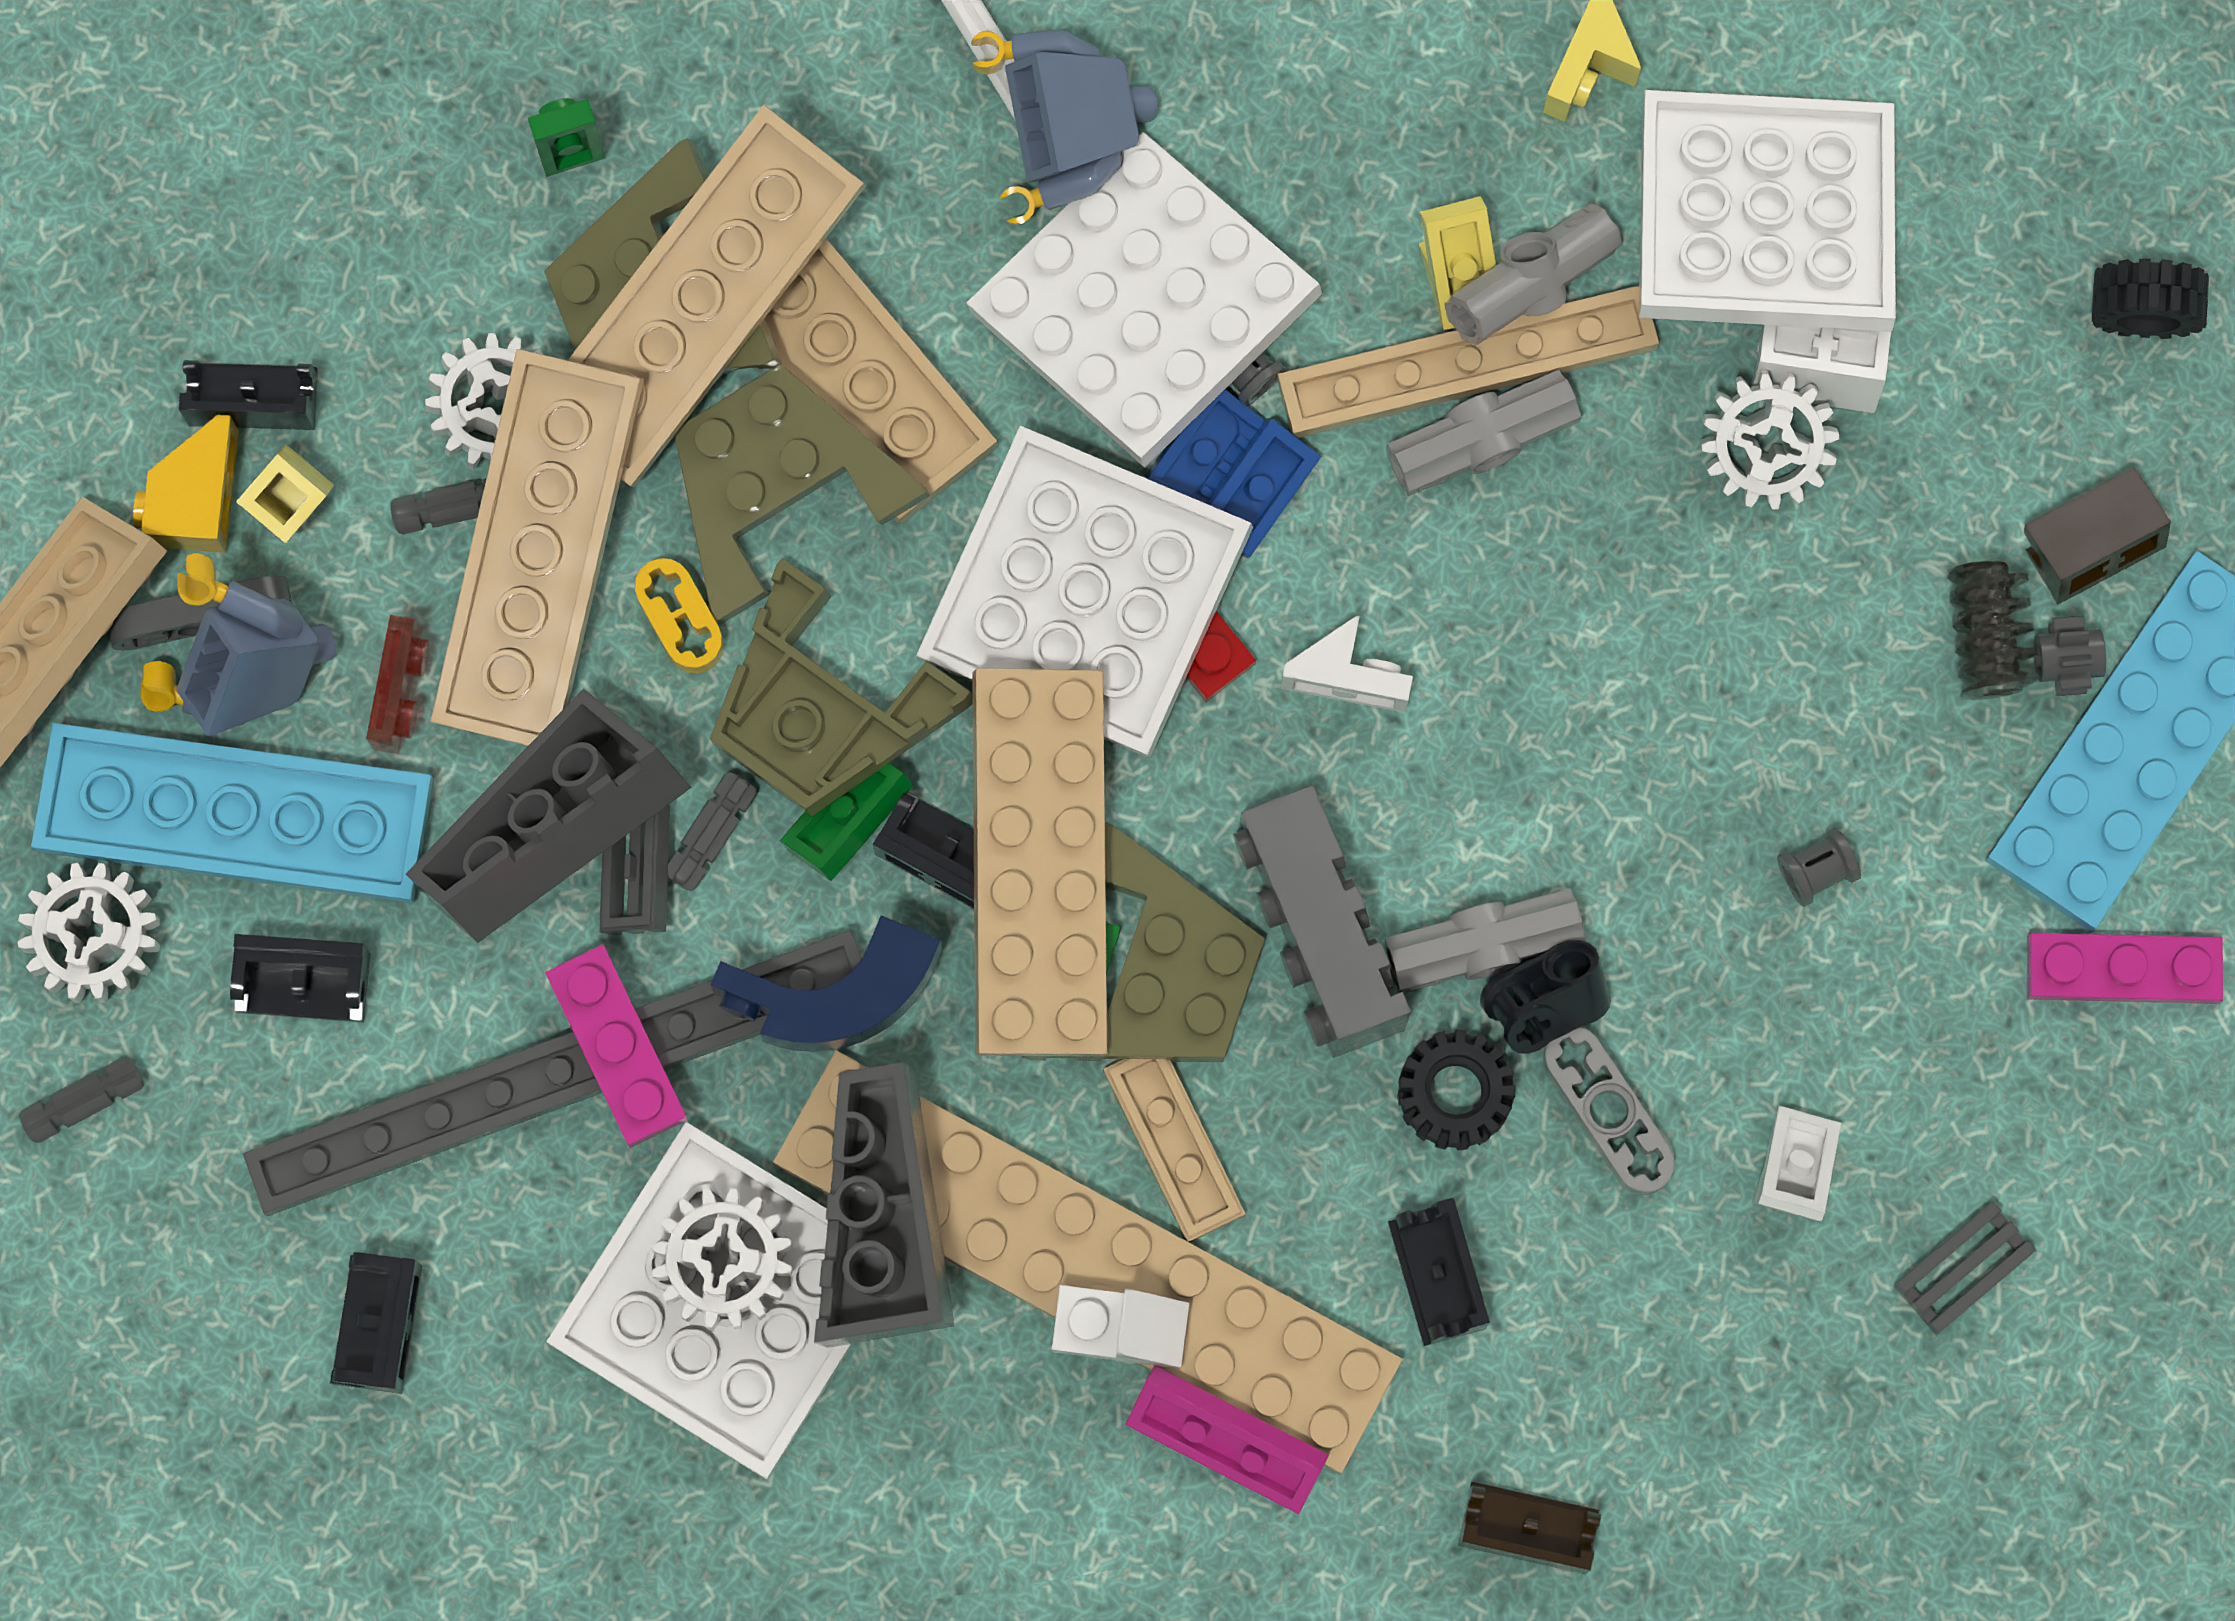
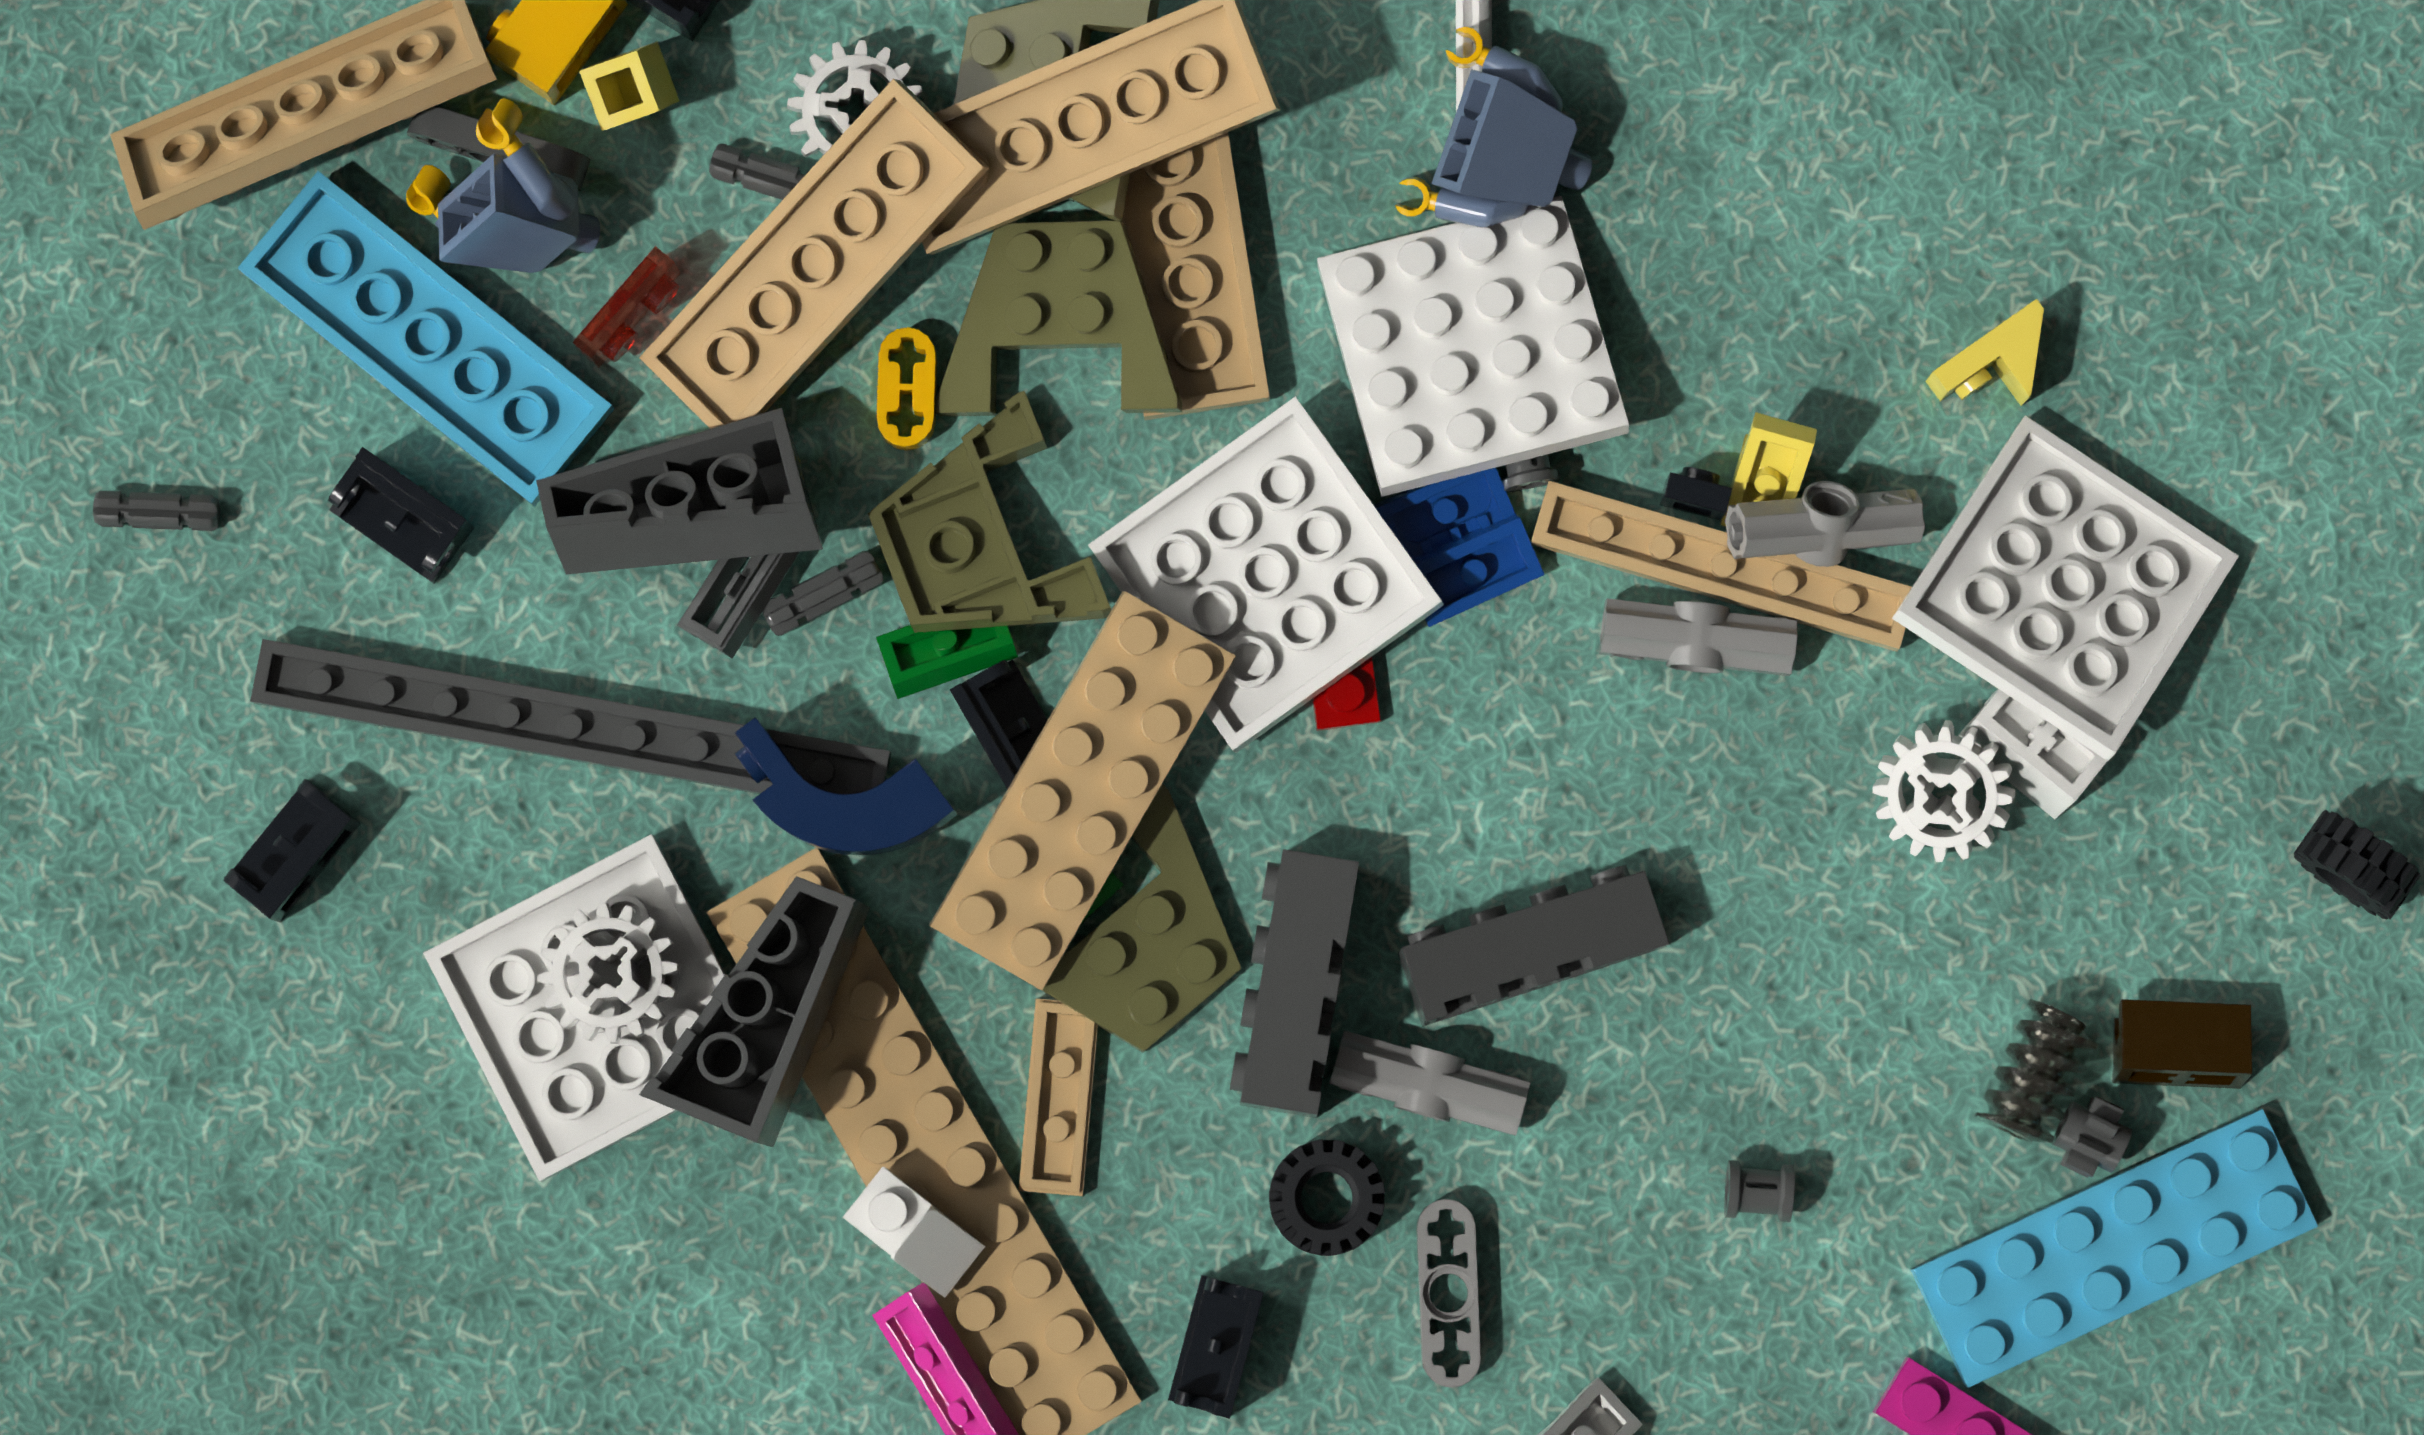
camera: 35 degrees right, 5 degrees up
(62, 926) = (259, 352): white gear -> none
(616, 1046) = (629, 734): dark pink plate -> none
(1327, 673) = (1436, 767): white slope -> none
(1409, 313) = (1696, 493): none -> black plate
(1501, 774) = (1533, 946): none -> dark grey wedge
(1550, 996) = (1458, 1167): black piece -> none

